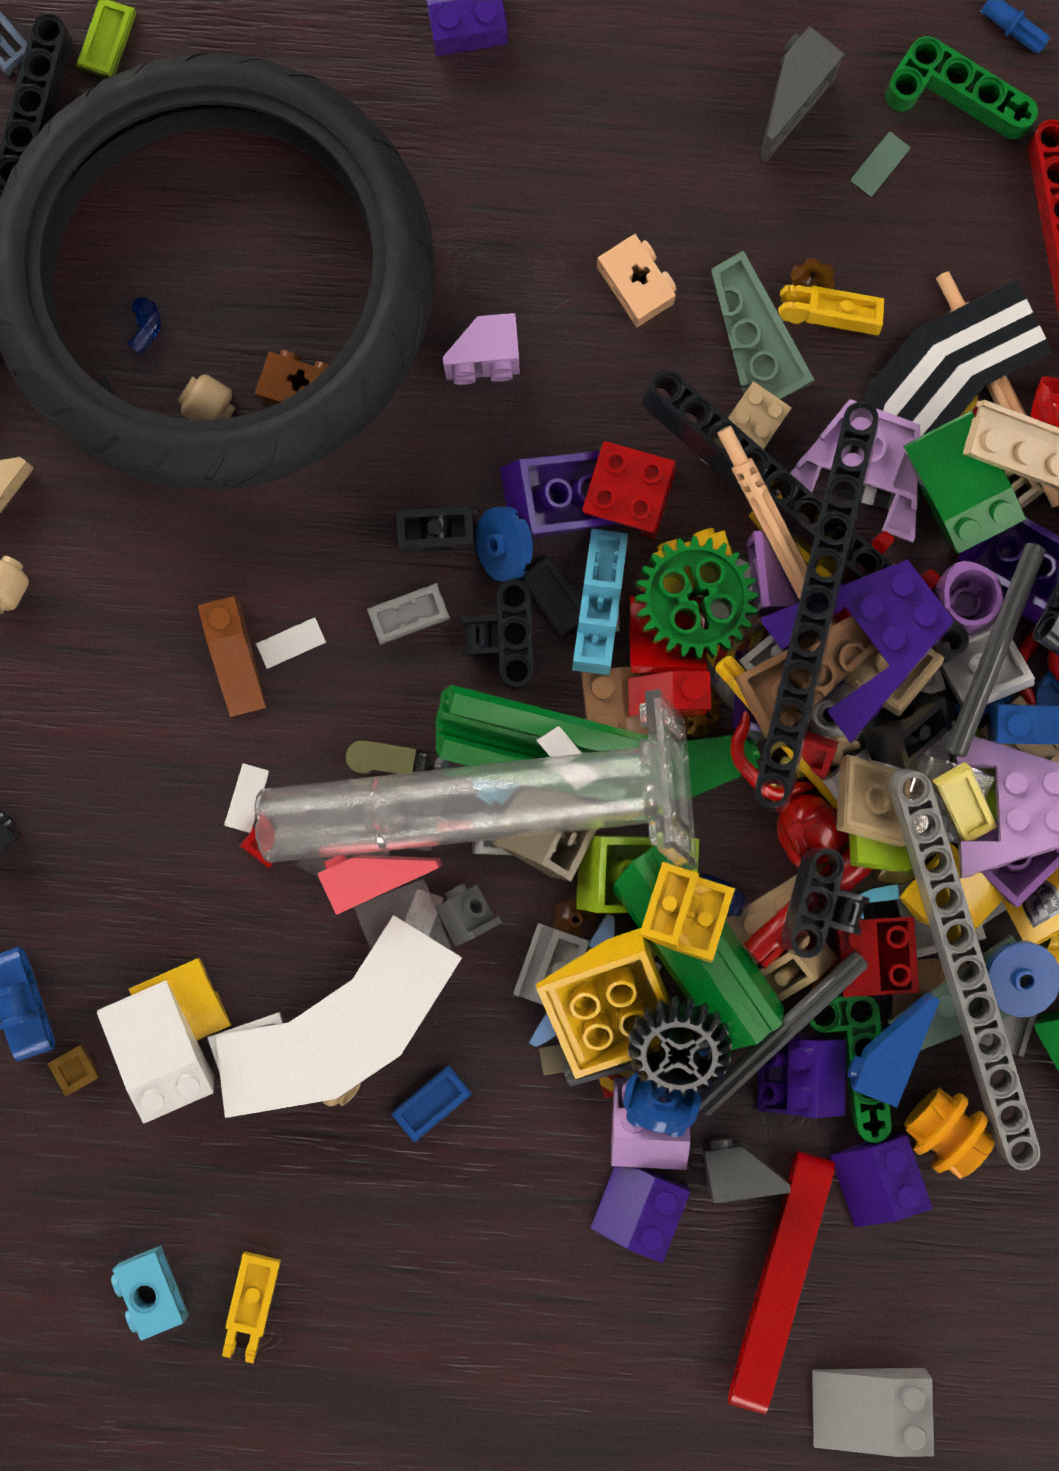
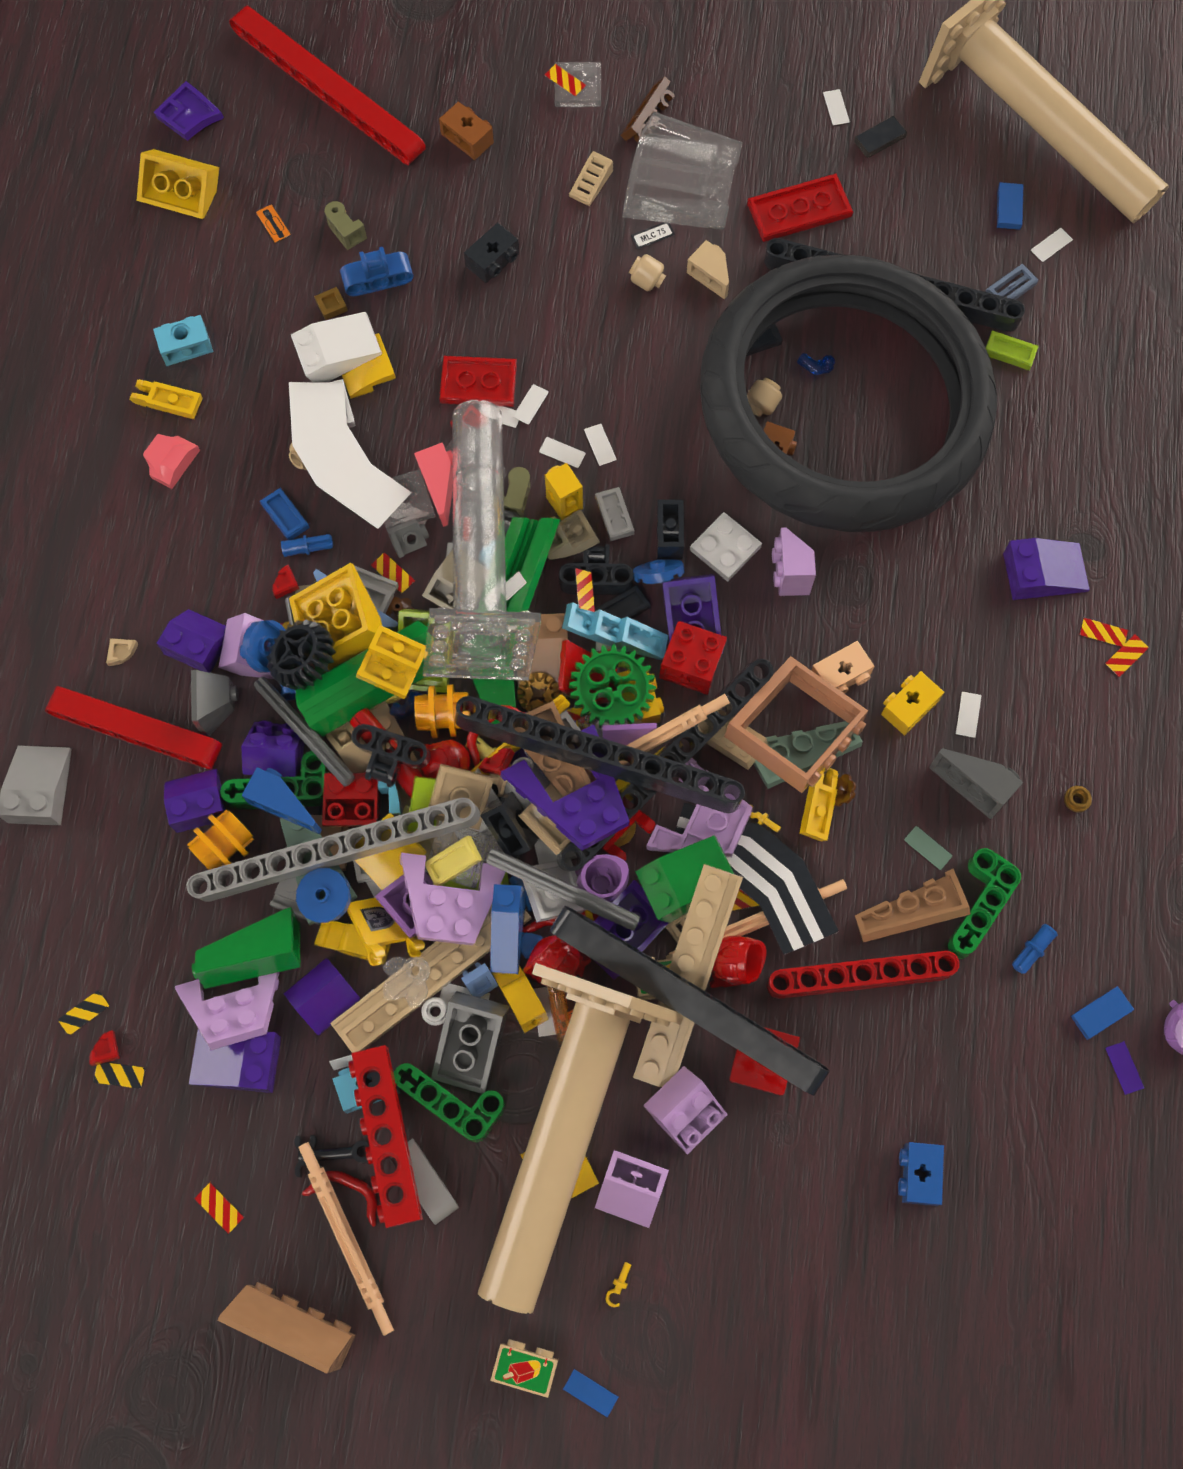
camera: 90 degrees right, 15 degrees down
(195, 831) = (478, 380): none -> red tile
(229, 750) = (530, 404): none -> white sticker
(232, 655) = (596, 404): dark orange slope -> none
(306, 698) = (562, 452): none -> white sticker
(350, 1287) = (169, 458): none -> coral slope
(384, 688) = (563, 491): none -> yellow brick
(447, 664) = (572, 536): none -> dark tan slope
(449, 451) = (725, 546): none -> white plate
(481, 1063) = (306, 545): none -> blue axle
(514, 933) = (392, 571): none -> sticker
(541, 1090) = (284, 583): none -> red tile
(547, 646) = (584, 590): none -> sticker
(661, 1319) = (120, 651): none -> tan tile
(672, 165) = (905, 715): none -> yellow brick
(684, 107) = (968, 714): none -> white sticker
(685, 690) = (546, 667): red slope -> none
(738, 839) = (438, 710): none -> light orange piece
(757, 278) = (817, 689): none -> nougat window
(857, 386) = (763, 819): none -> yellow hand
(970, 167) = (929, 905): none -> medium nougat wing

